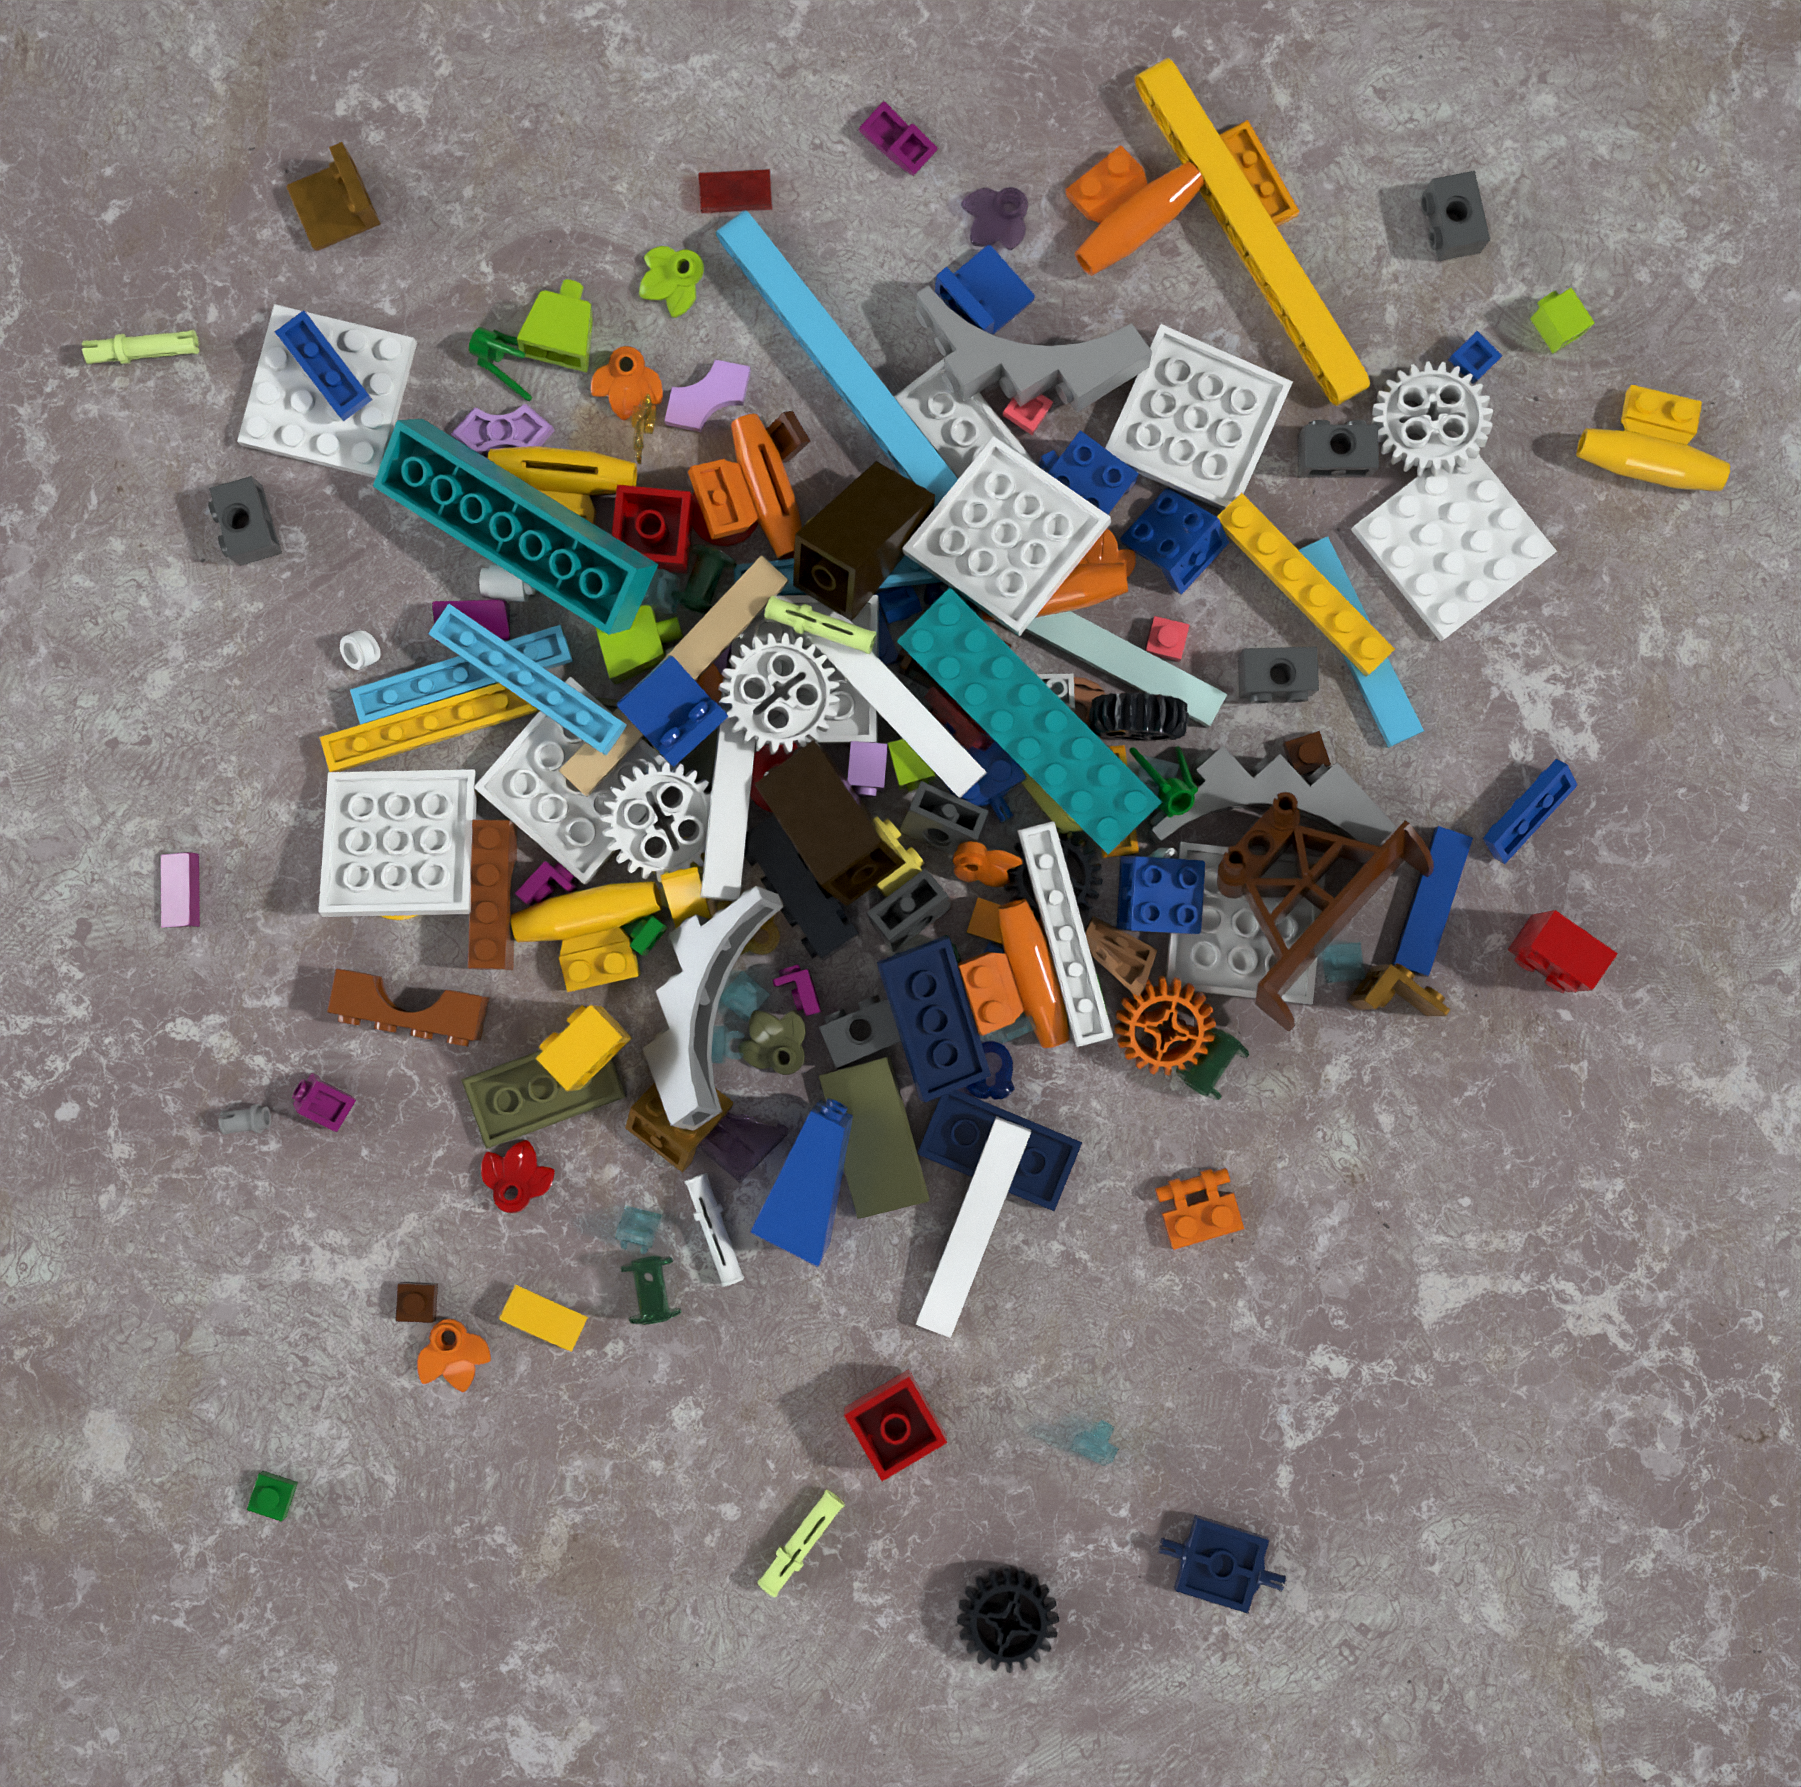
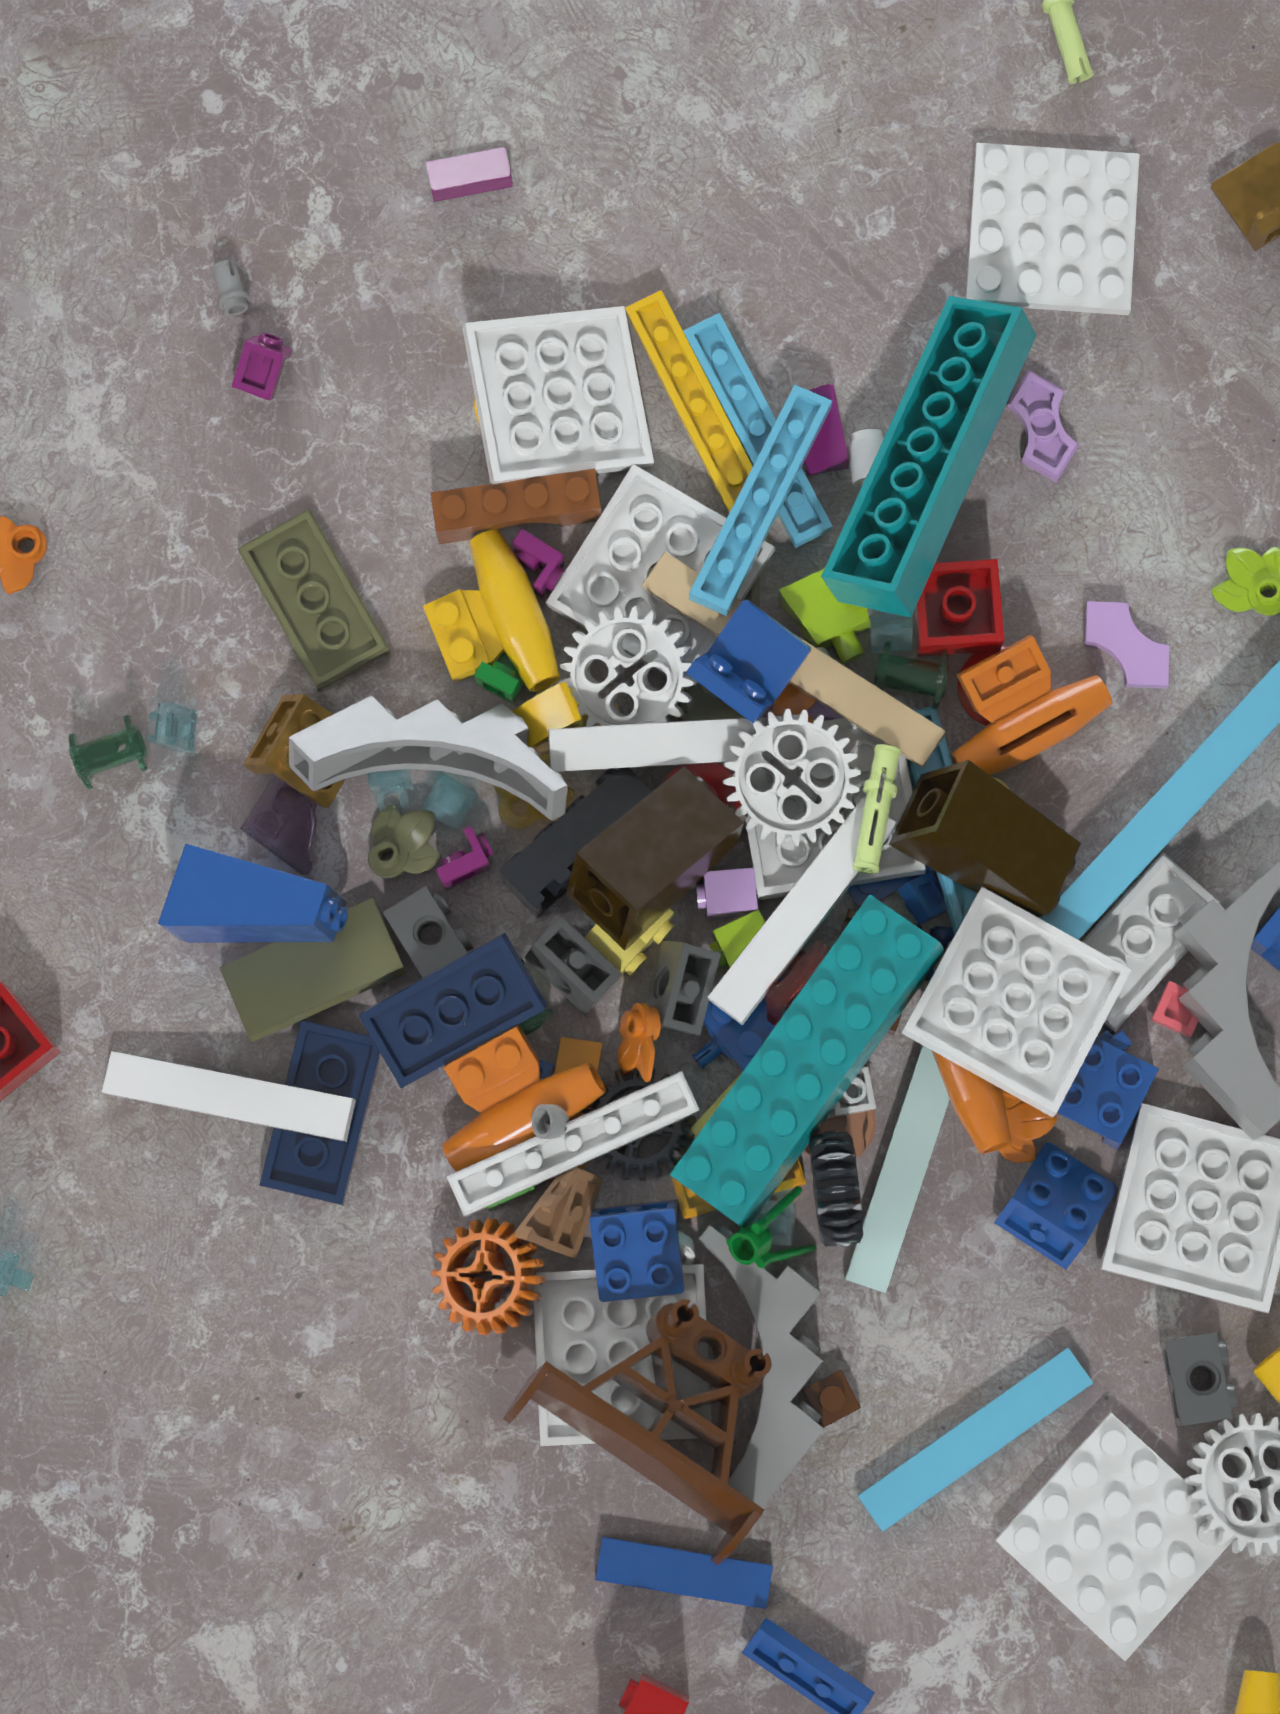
camera: 90 degrees right, 5 degrees down
(258, 537) = (876, 186): dark grey brick -> none
(323, 365) = (1075, 219): blue plate -> none
(359, 649) = (767, 315): white tile -> none
(364, 997) = (381, 388): dark orange arch -> none
(416, 1302) = (59, 504): reddish brown plate -> none
(492, 347) = (1135, 397): green plant -> none
(517, 1171) = (217, 586): red plate -> none
(543, 1318) = (61, 641): yellow slope -> none
(559, 328) = (1170, 466): lime torso -> none
(567, 474) = (1001, 504): yellow plate -> none
(582, 1047) = (362, 631): yellow brick -> none
(629, 387) = (1118, 552): orange plate -> none
(643, 421) = (1079, 577): clear yellow plate -> none
(714, 1229) = (184, 811): white pin -> none
(788, 435) = (1094, 741): reddish brown plate -> none
(1003, 1085) = (395, 1106): clear blue piece -> none
(1017, 1029) = (460, 1112): clear light blue tile -> none
(1052, 952) = (540, 1121): none -> light grey hinge
(1167, 638) = (939, 1213): coral plate -> none
(1201, 1219) = (275, 1358): orange plate -> none
(1213, 1065) = (453, 1340): clear green hose -> none
(1297, 663) = (925, 1322): dark grey brick -> none
(1304, 585) = (1028, 1361): yellow plate -> none
(1343, 962) = (595, 1478): clear light blue tile -> none
(1385, 981) = (564, 1515): pearl gold bracket -> none

